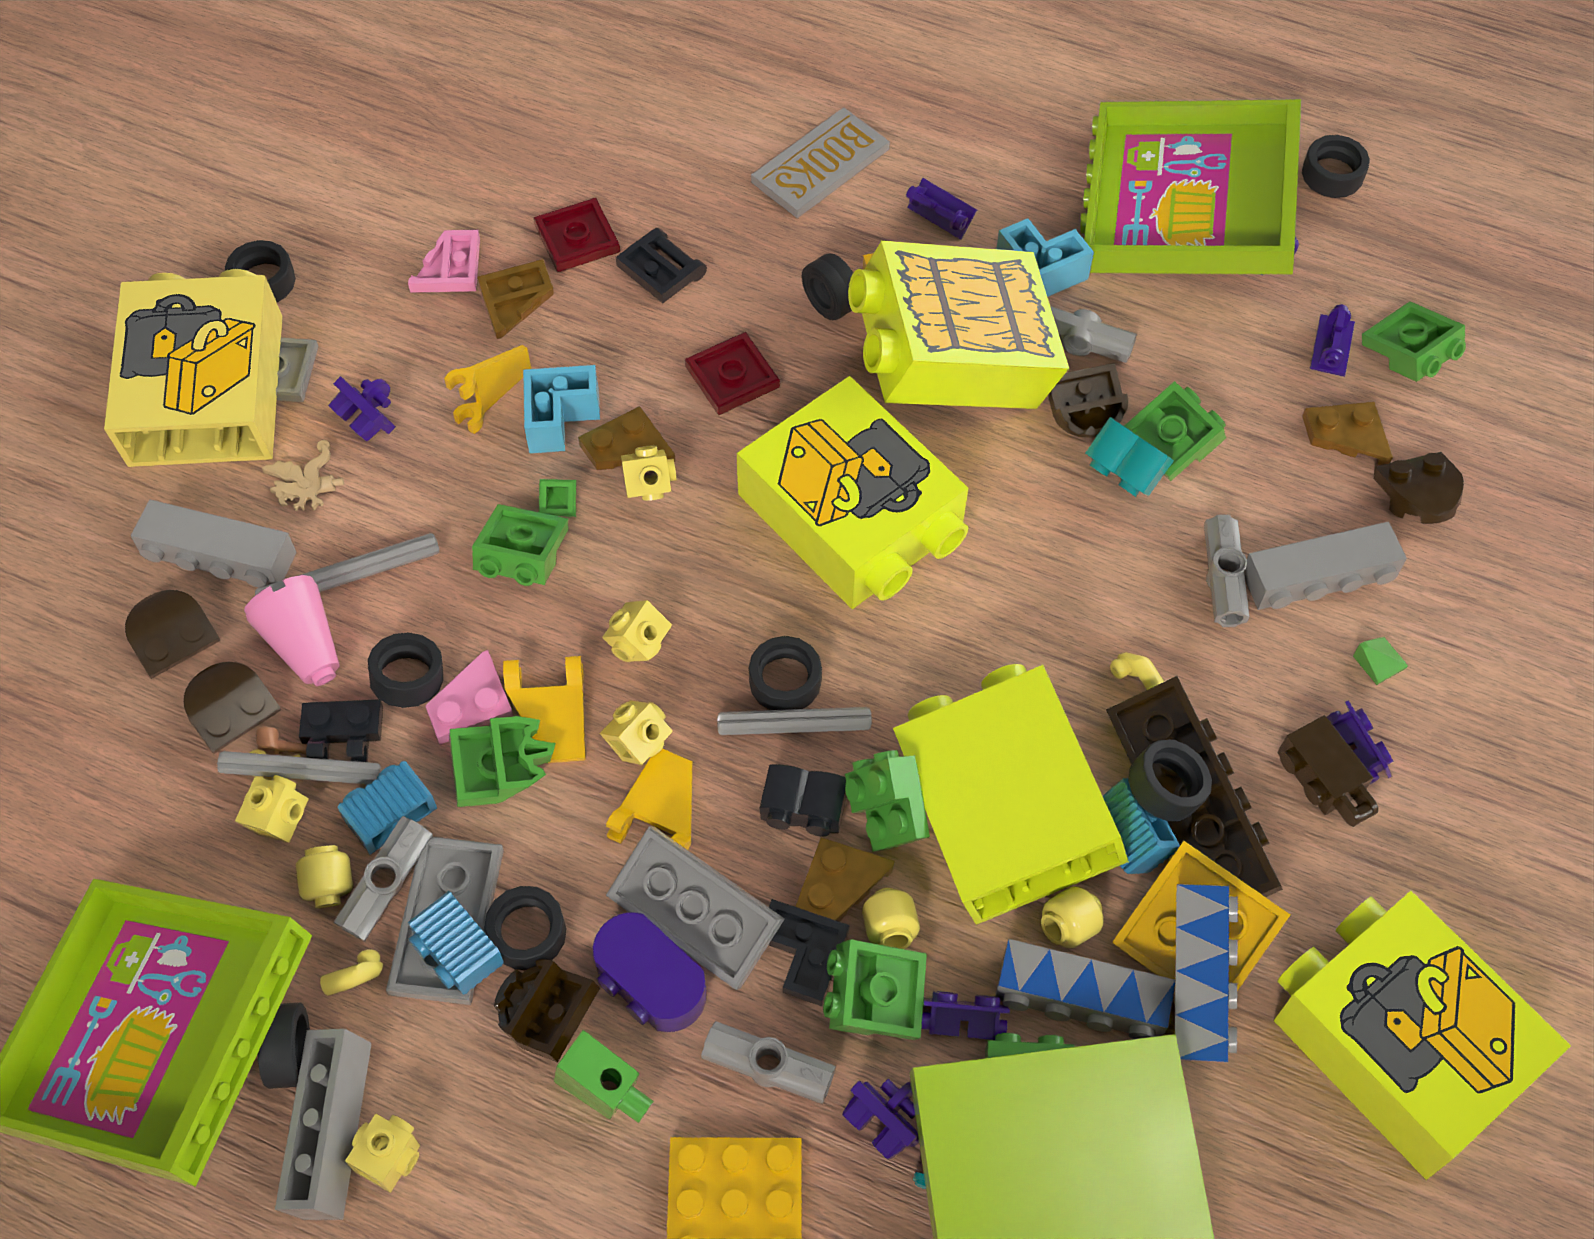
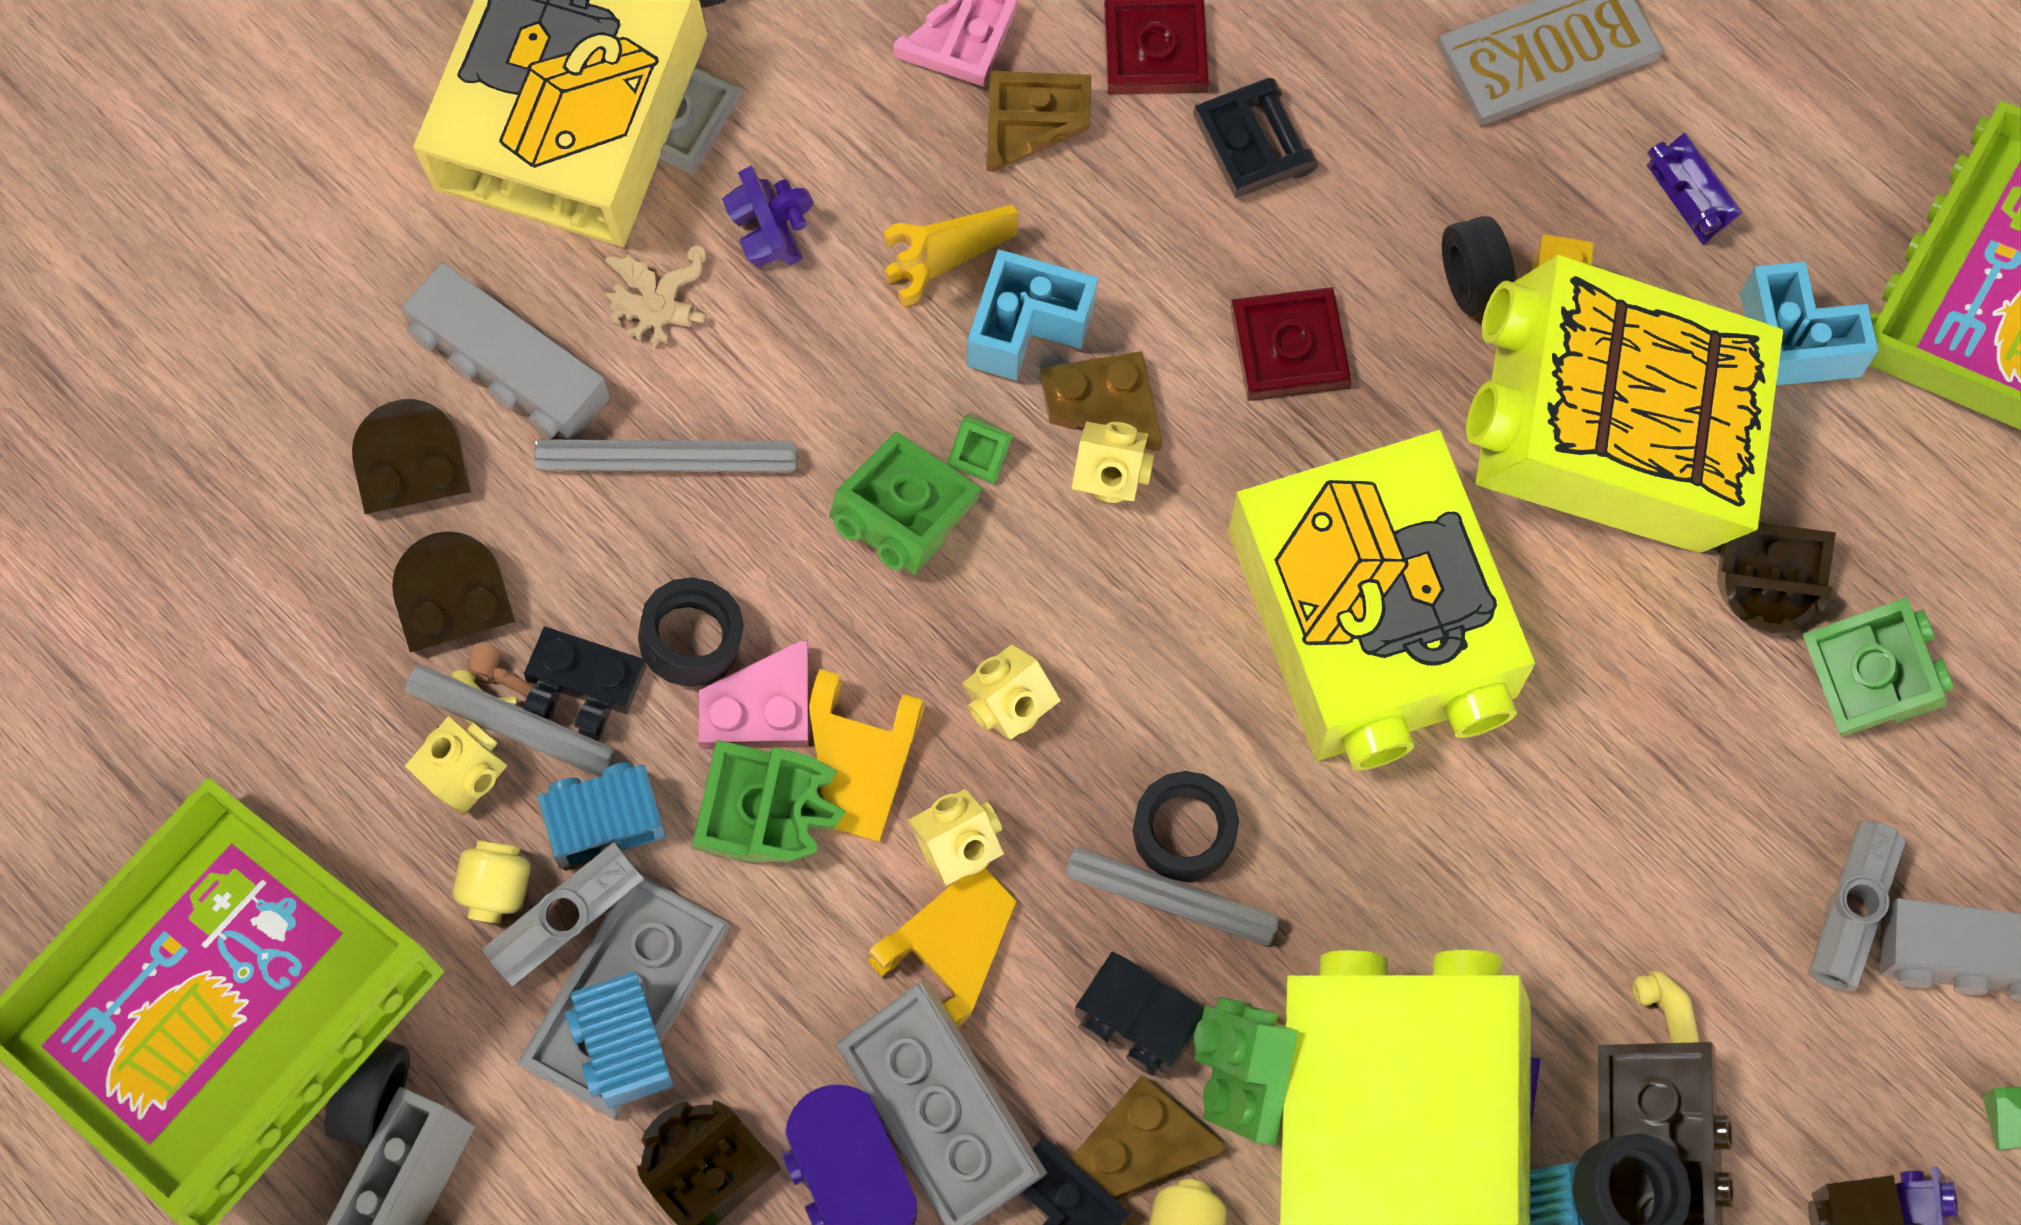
camera: 20 degrees right, 10 degrees up
(296, 628) = (570, 523): bright pink cone -> none
(353, 976) = (484, 1029): light yellow arm -> none
(519, 898) = (690, 1016): black tyre -> none
(1086, 333) = (1818, 466): light grey piece -> none
(1128, 457) = (1792, 686): teal brick -> none

